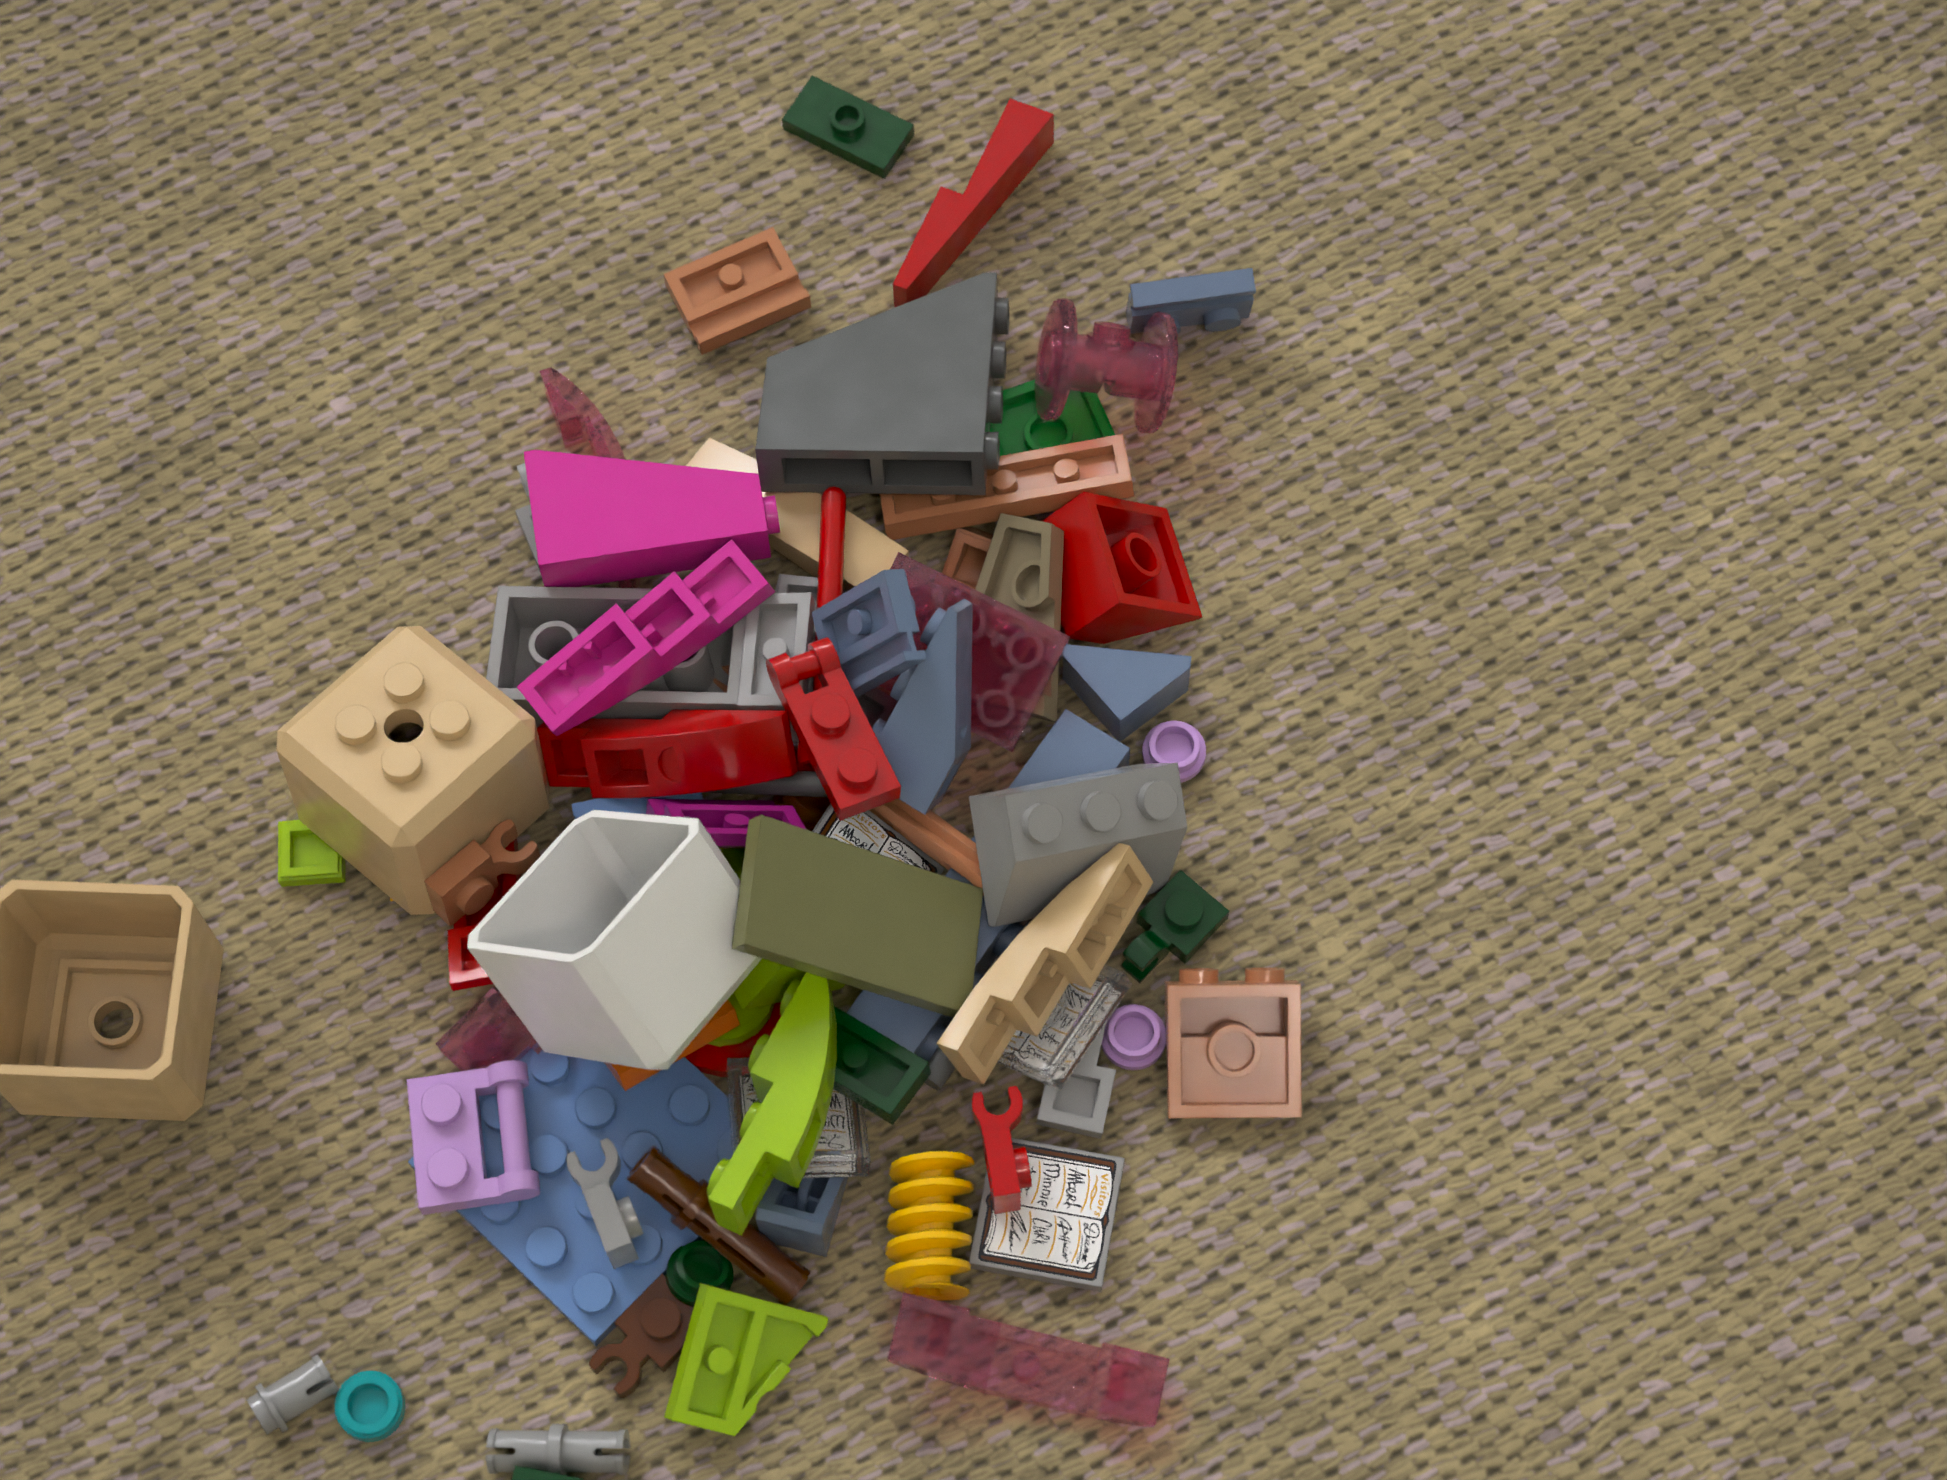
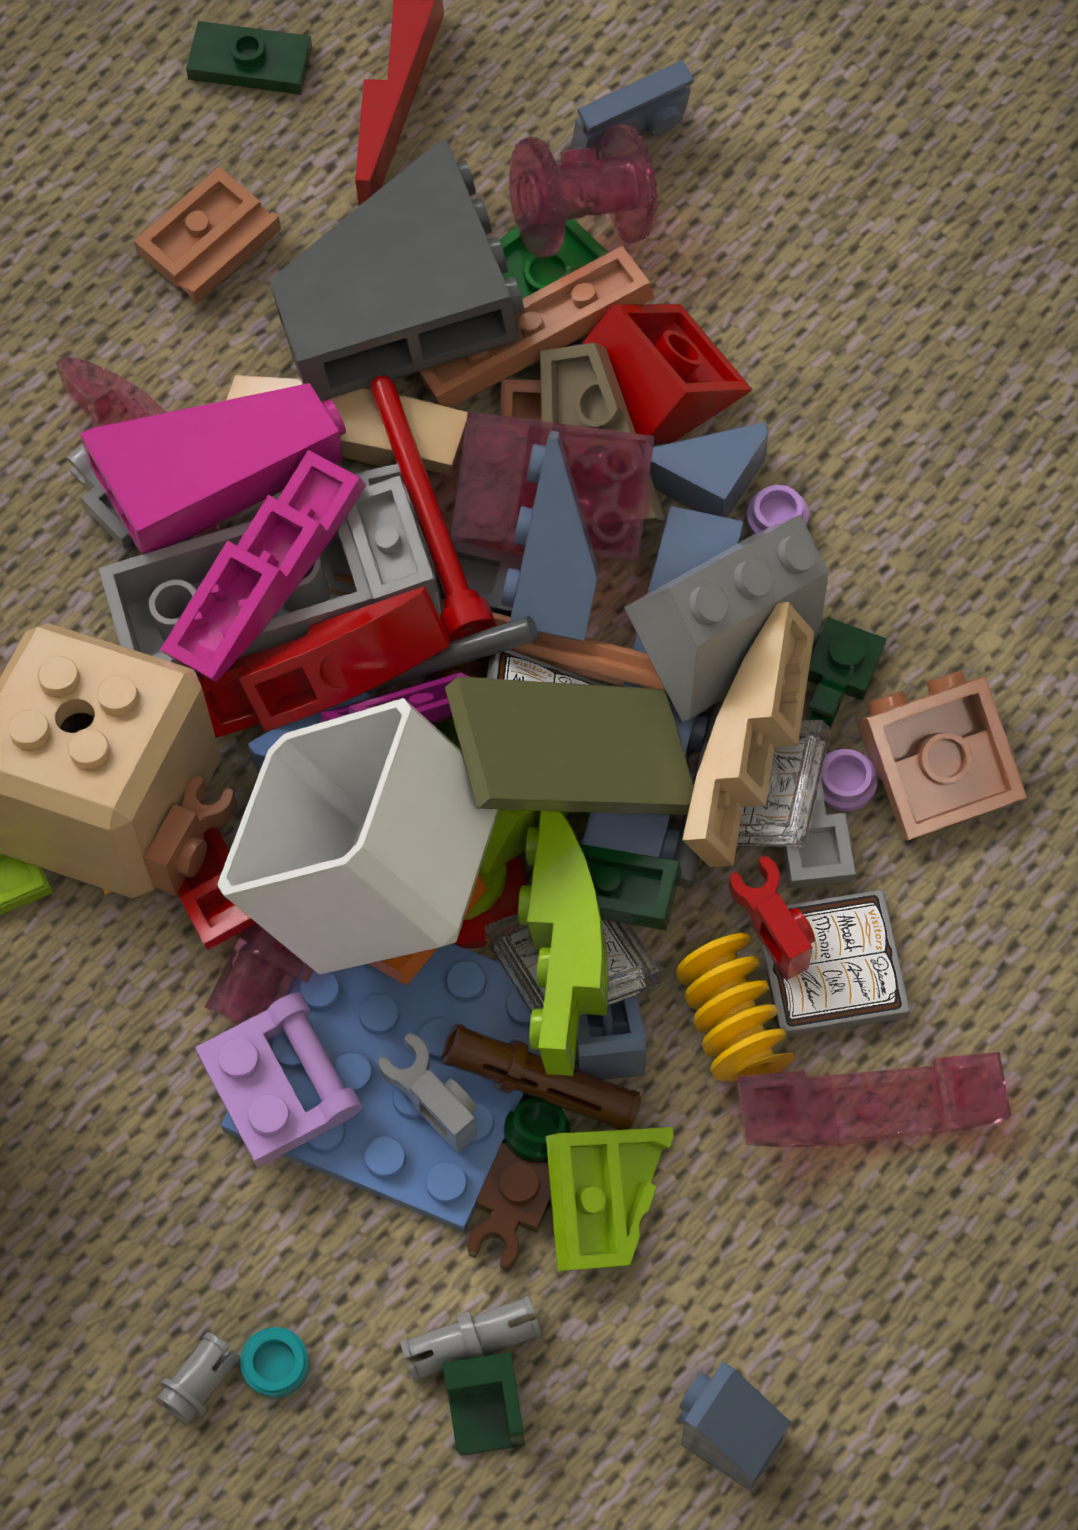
camera: 20 degrees left, 0 degrees up
(834, 730) = (475, 588): red plate -> none
(872, 630) = (474, 491): sand blue plate -> none

